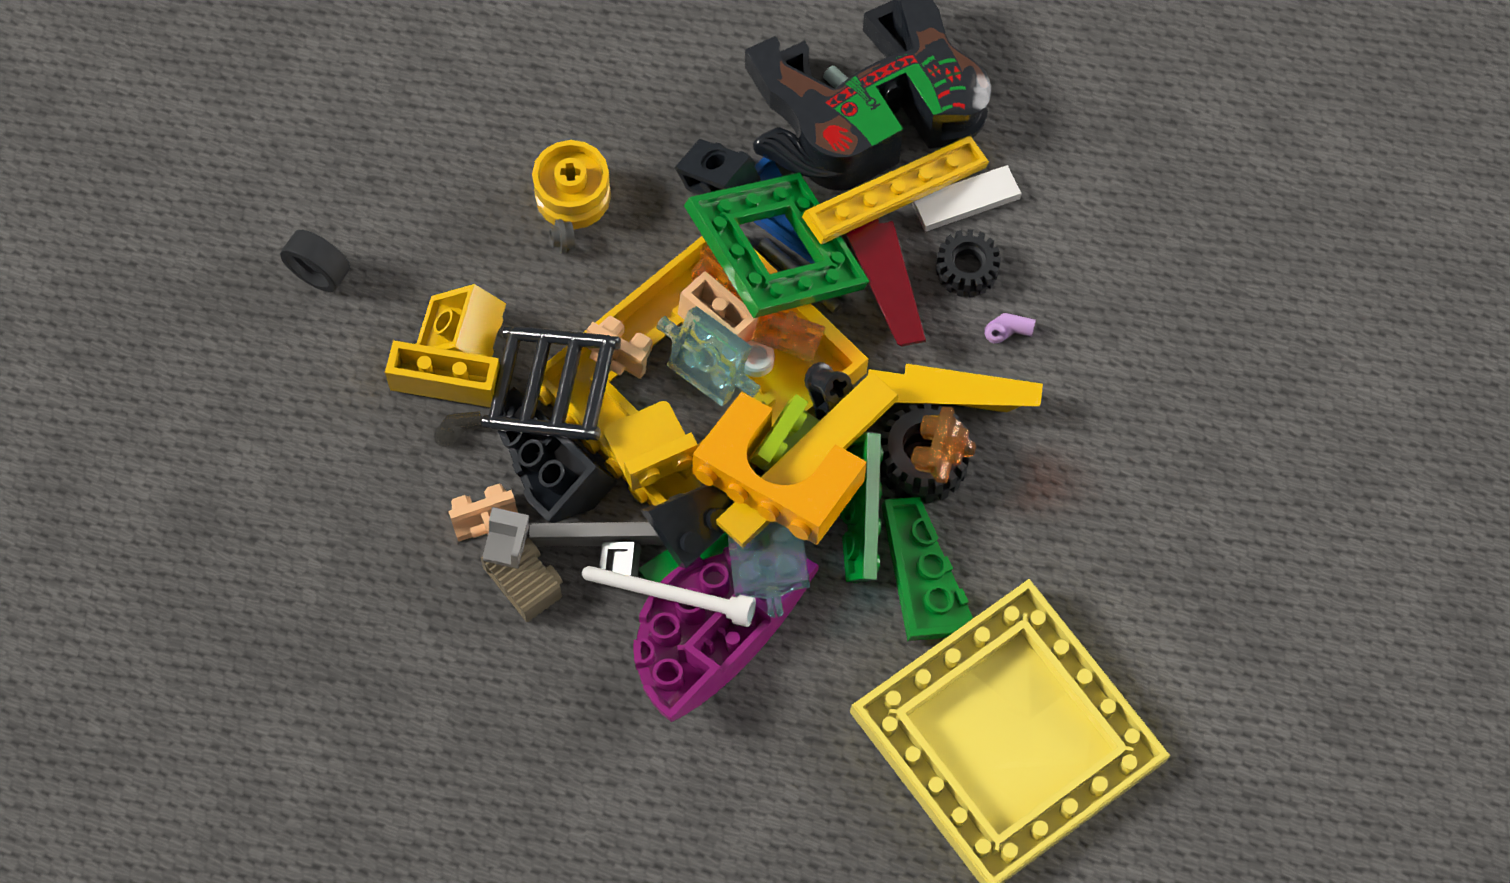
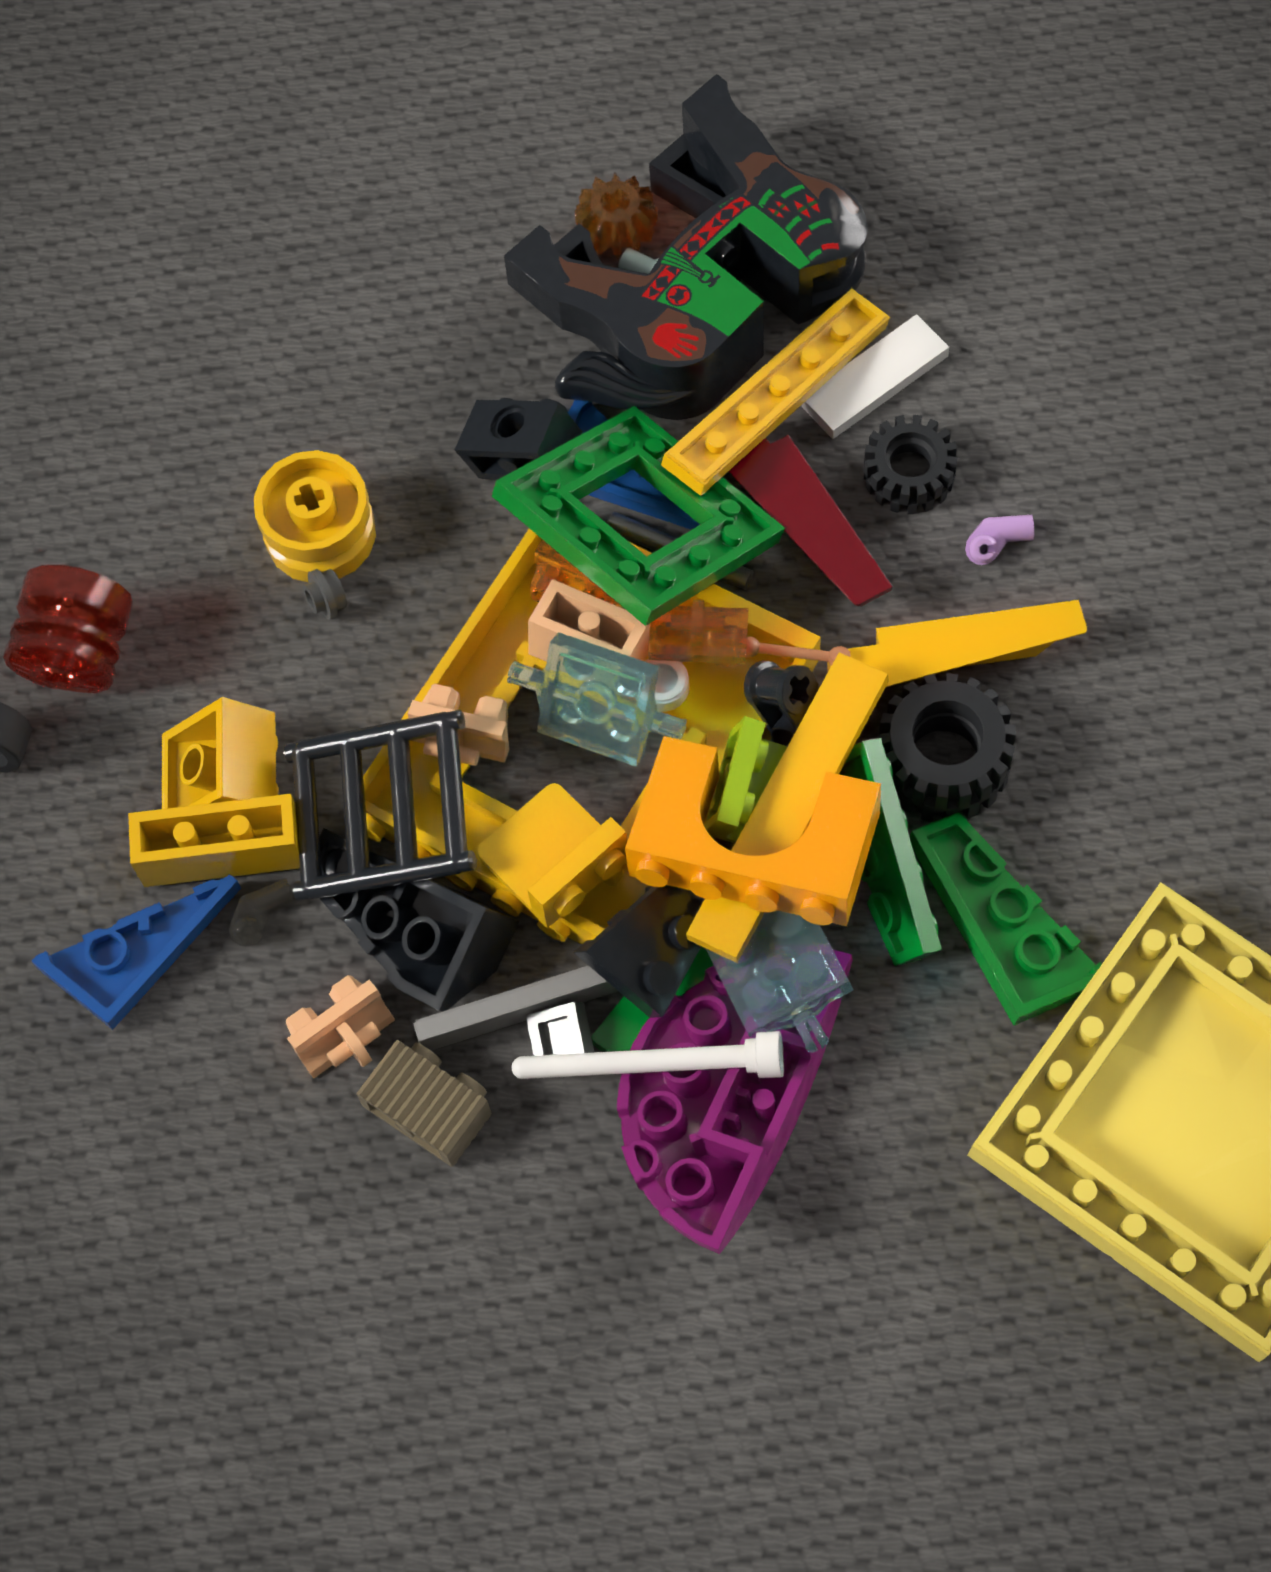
camera: 10 degrees left, 0 degrees up
(364, 432) = (124, 961): none -> blue wing
(392, 211) = (68, 629): none -> clear red wheel
(506, 537) = (385, 1053): light grey panel -> none
(822, 352) = (755, 647): none -> nougat hinge
(833, 40) = (617, 214): none -> clear orange gear
(948, 445) = (981, 725): clear orange hips -> none

